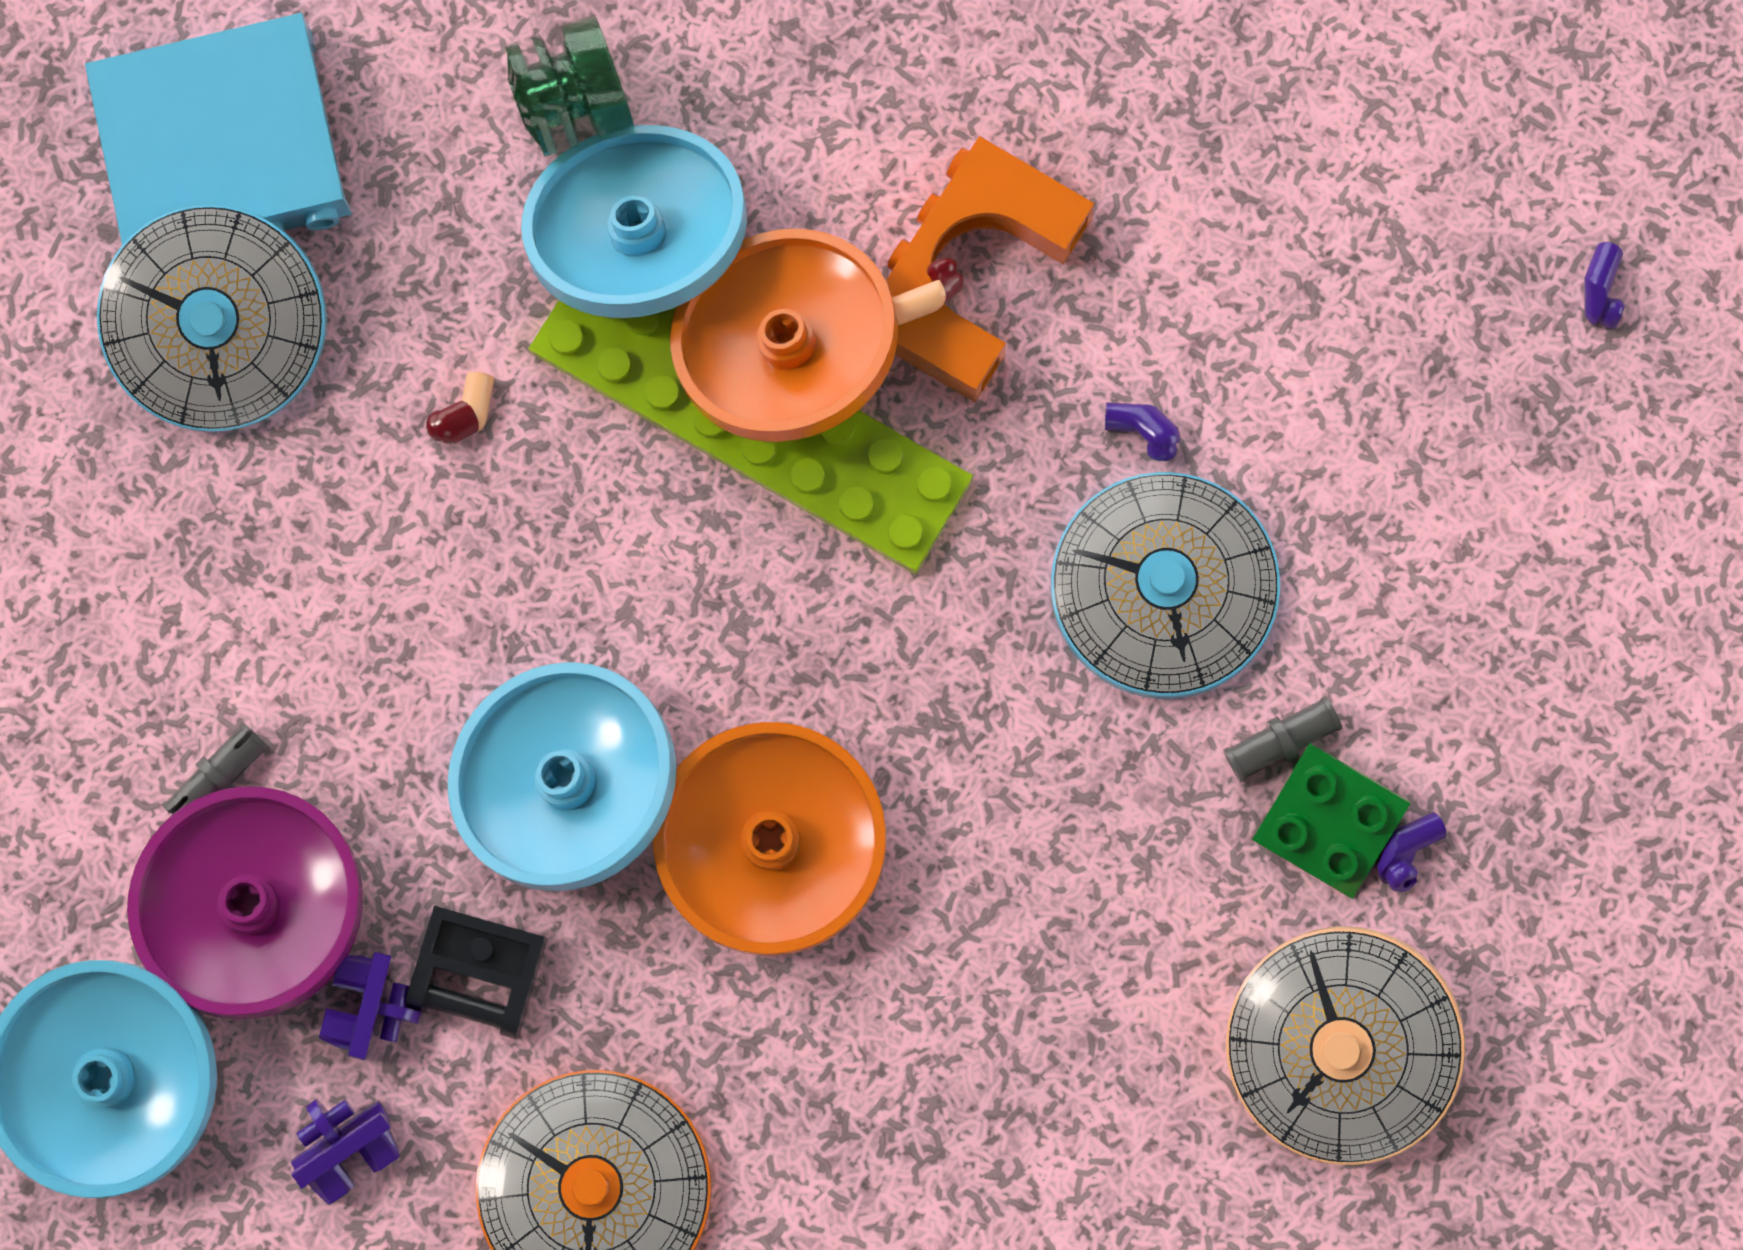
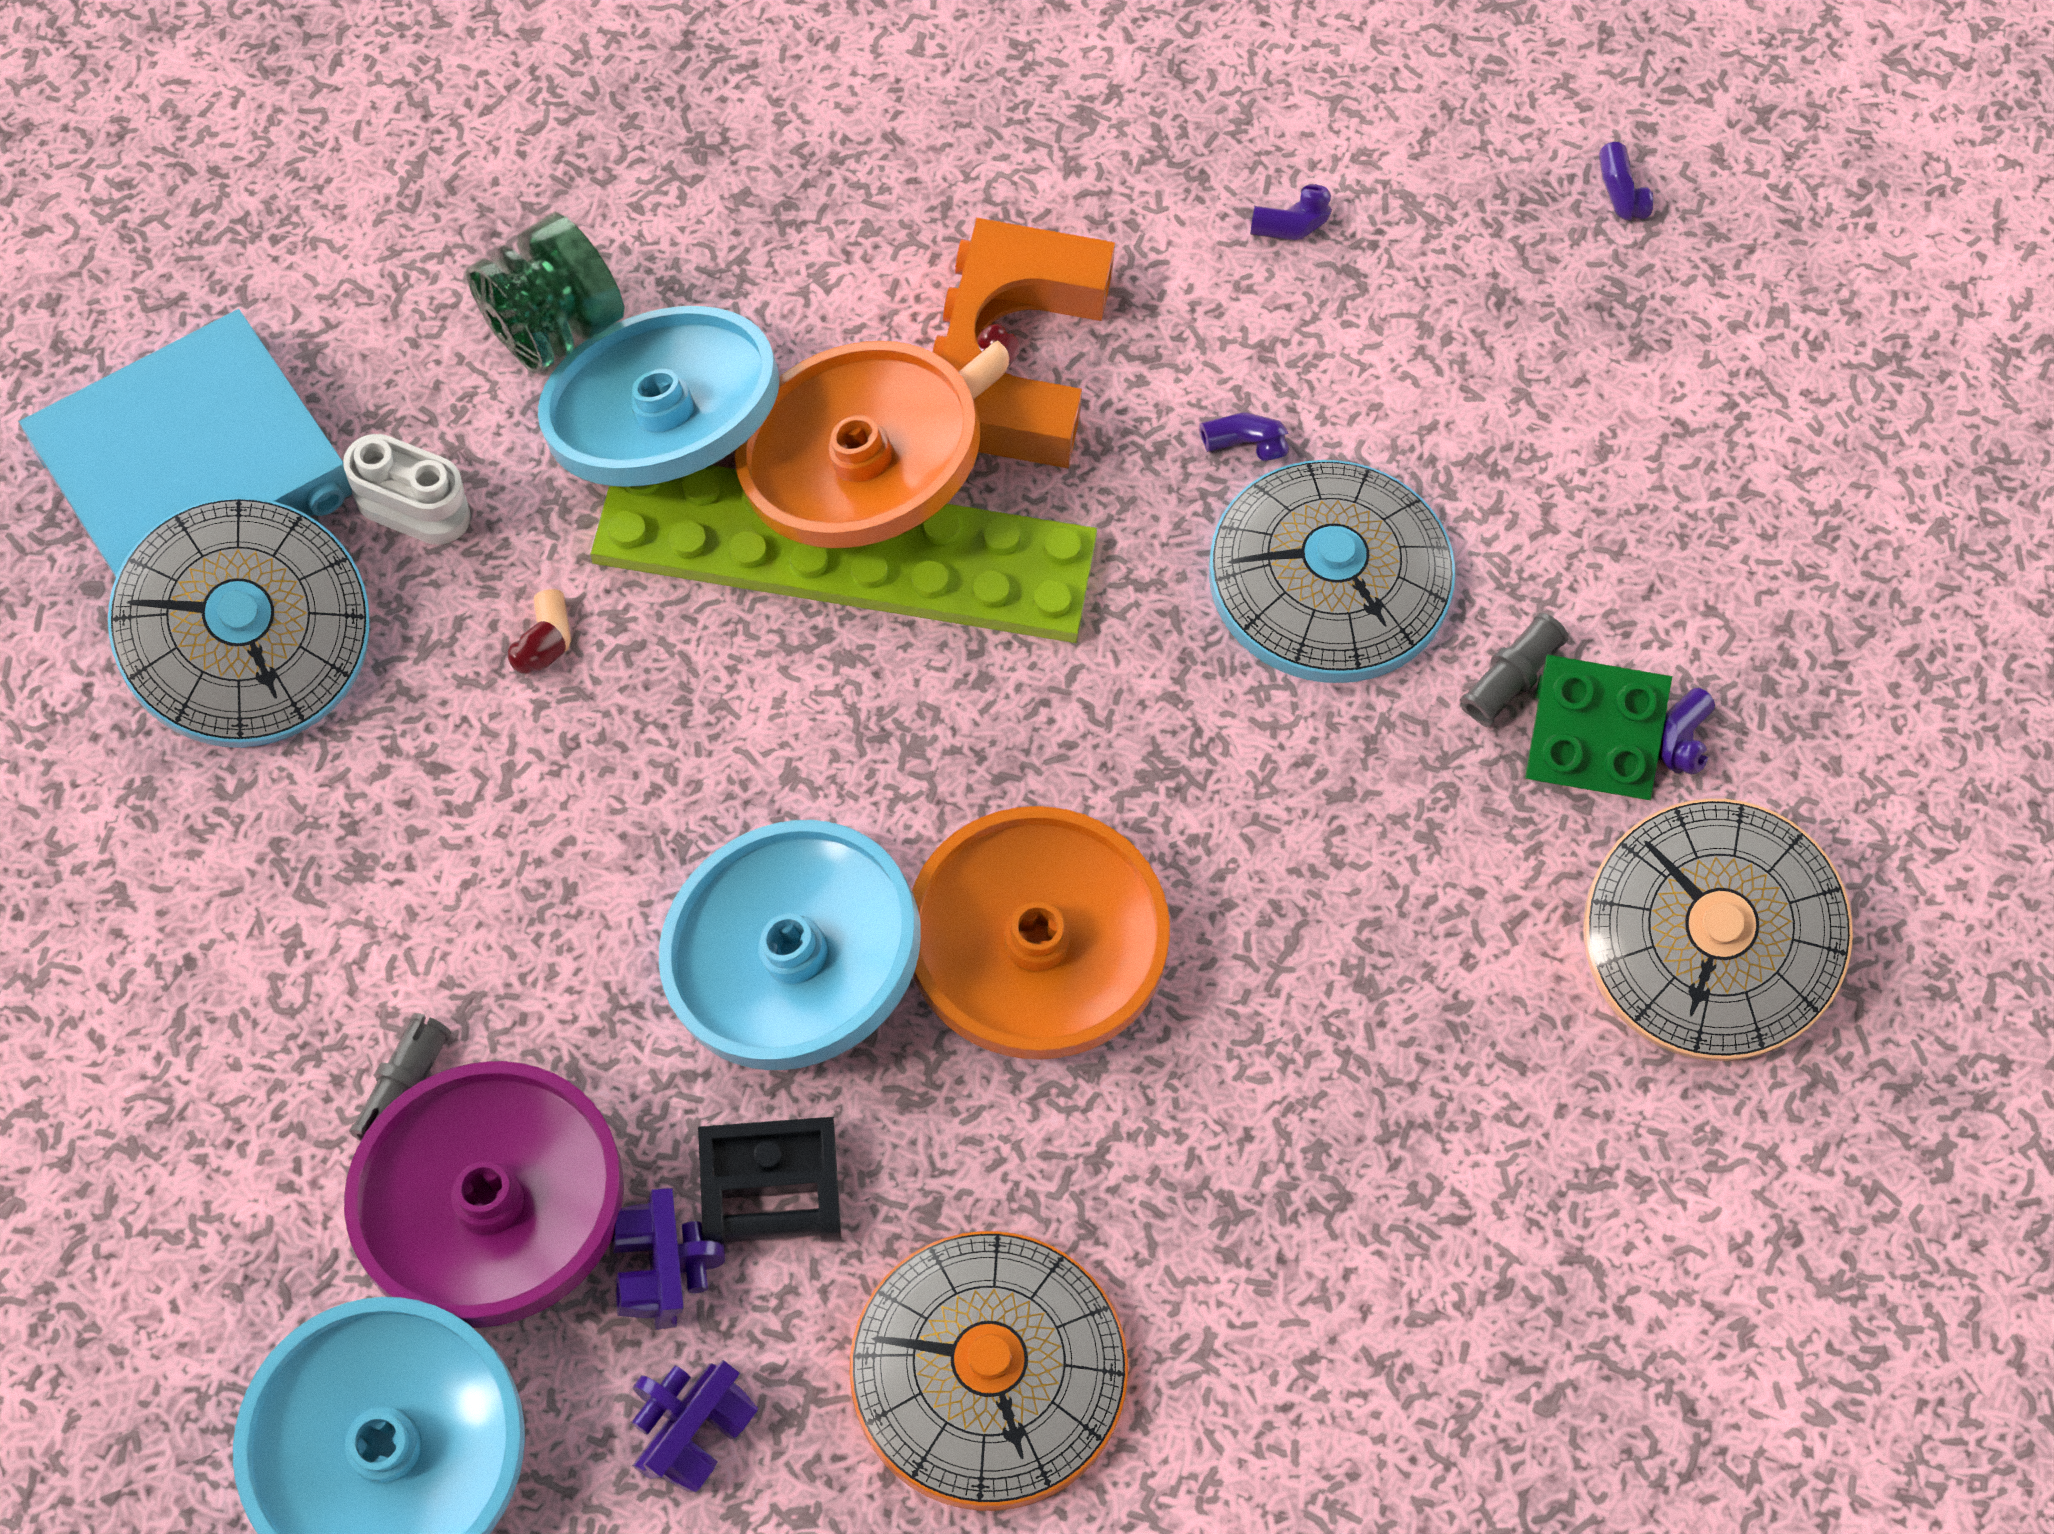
camera: 30 degrees left, 15 degrees down
(391, 235) = (407, 489): none -> white brick
(1283, 223) = (1296, 221): none -> dark purple arm

